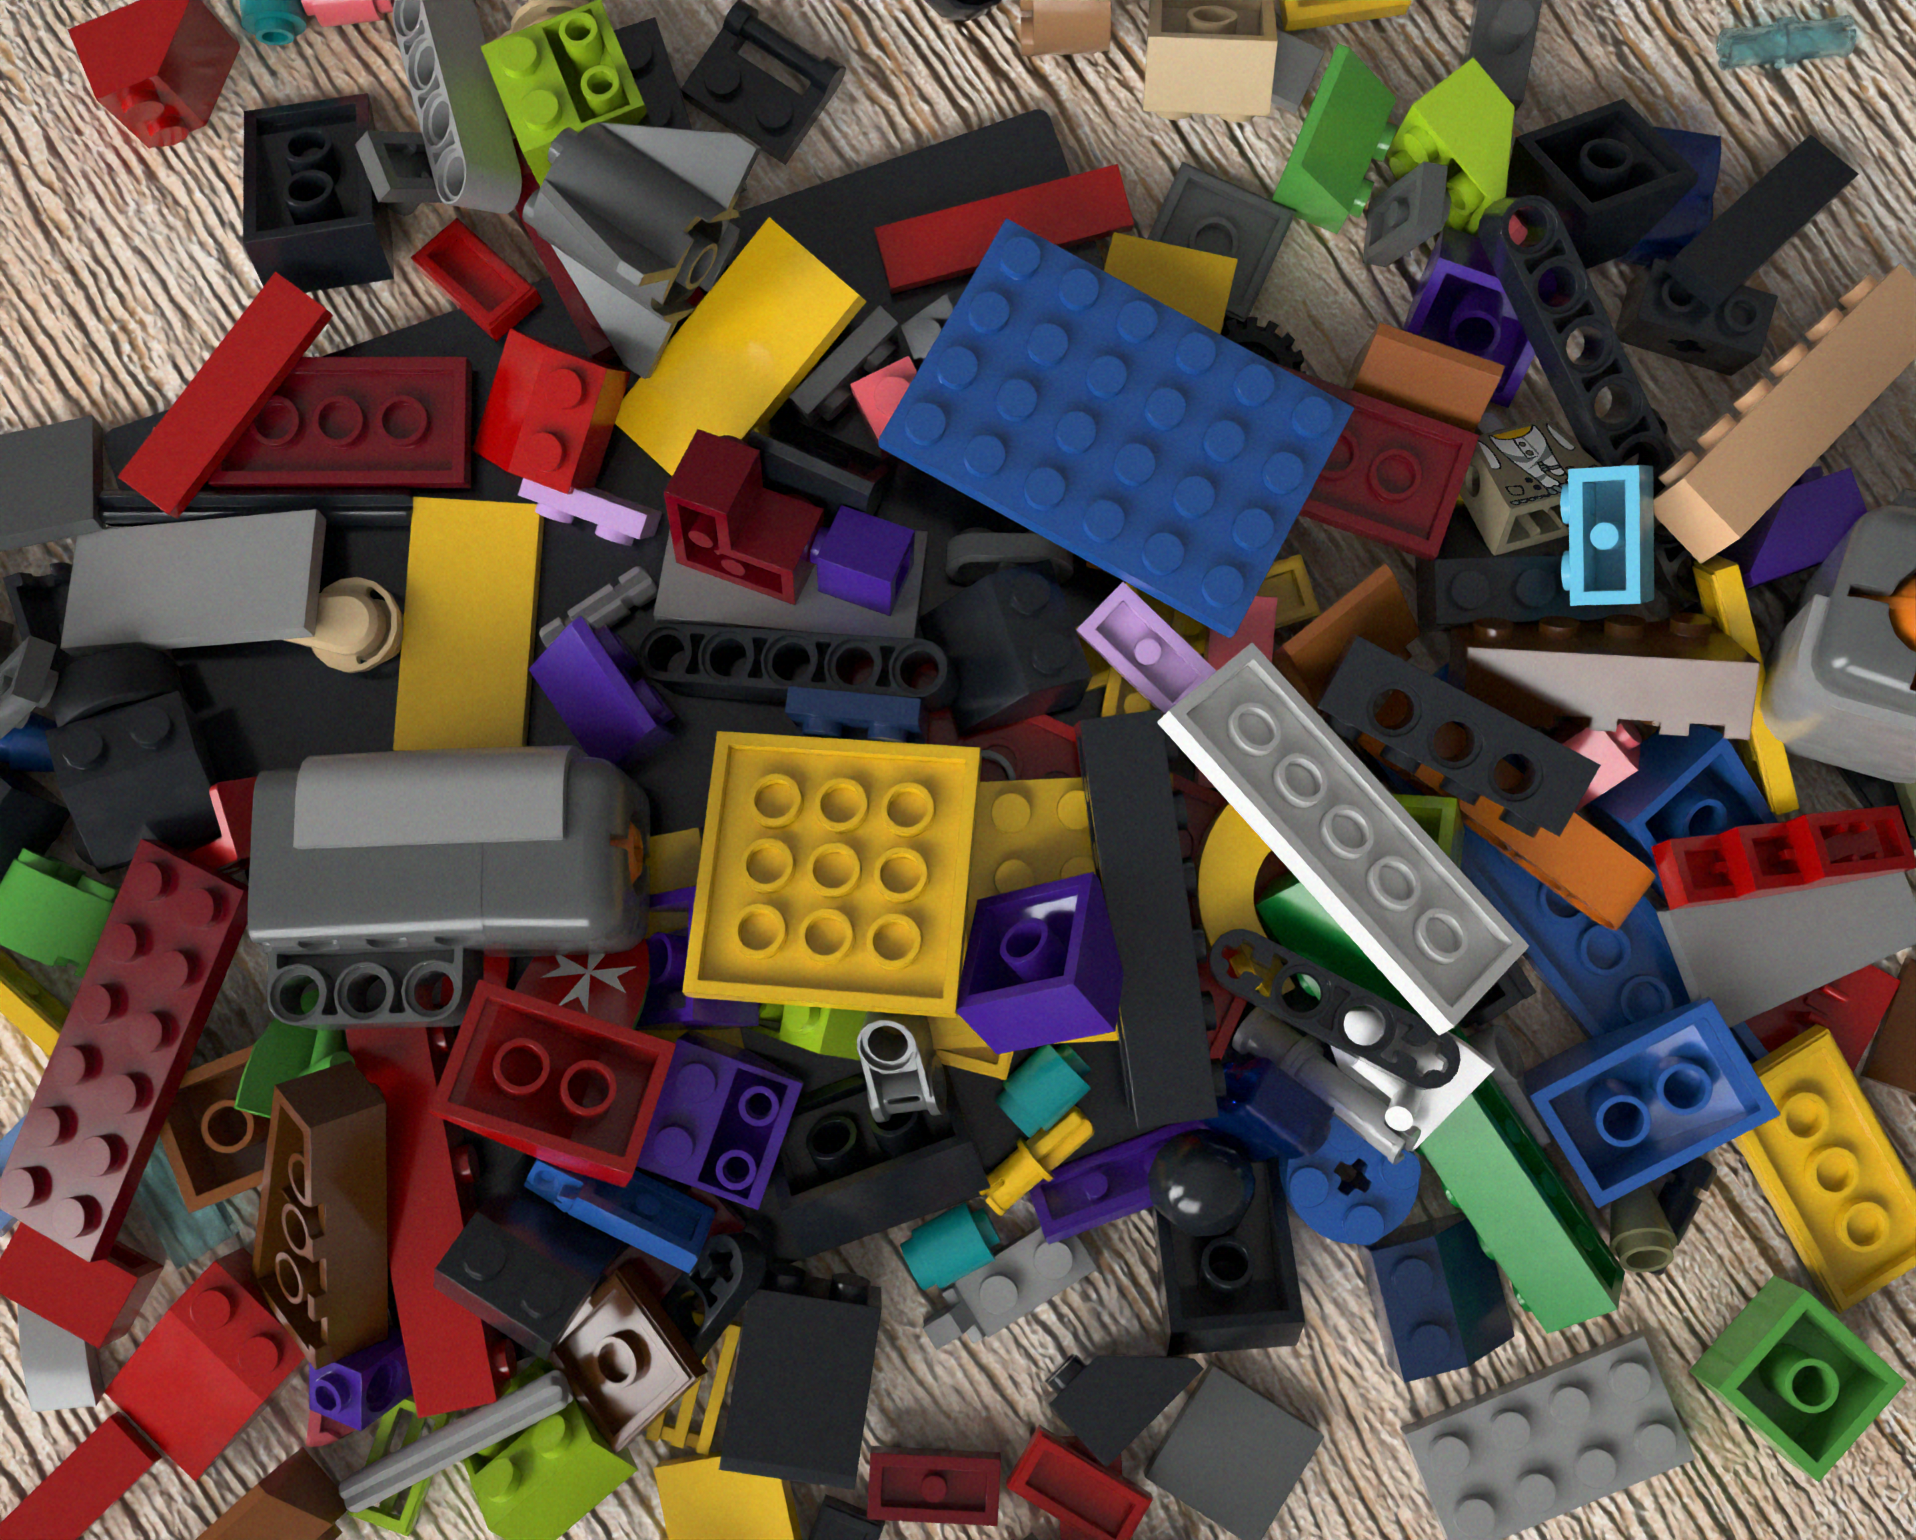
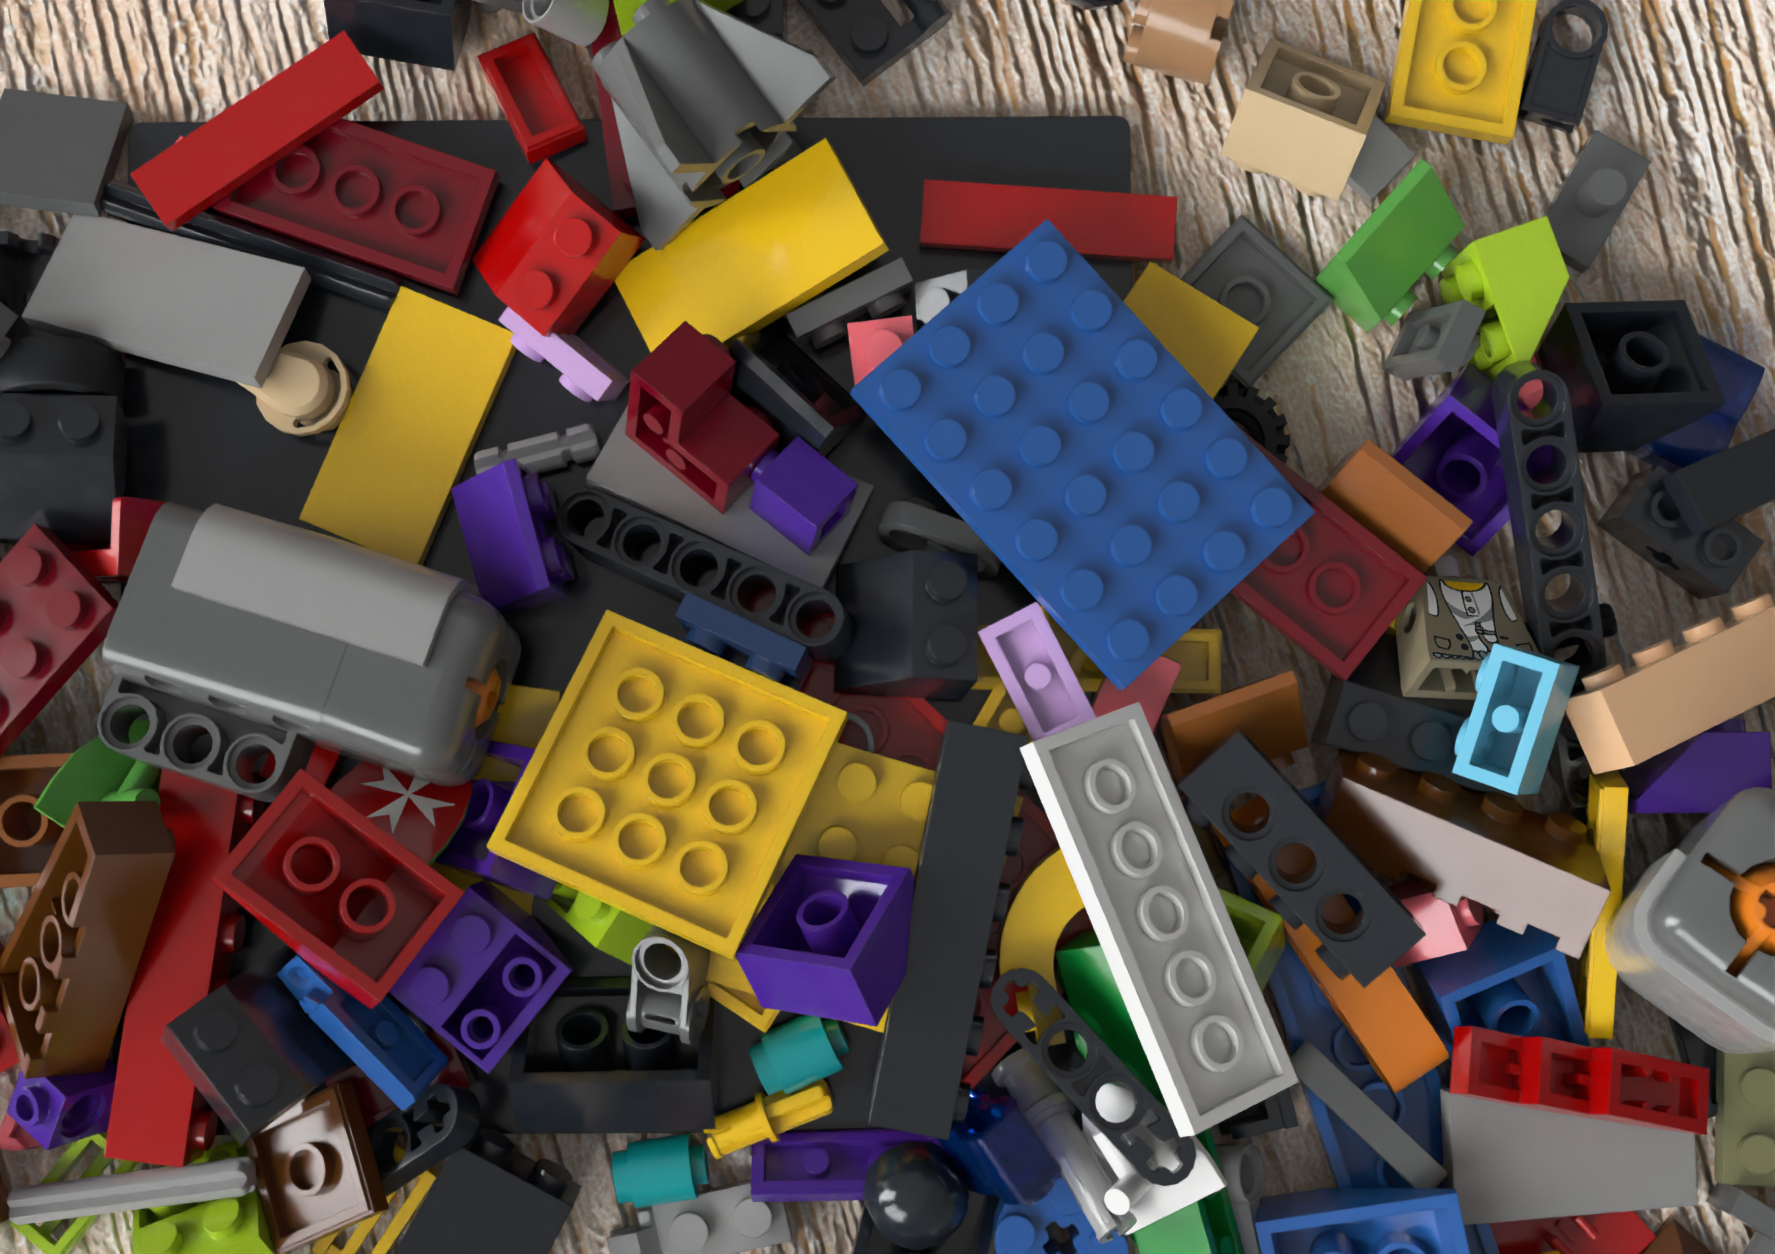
camera: 20 degrees right, 0 degrees up
(1600, 963) = (1366, 1118): none -> dark grey beam

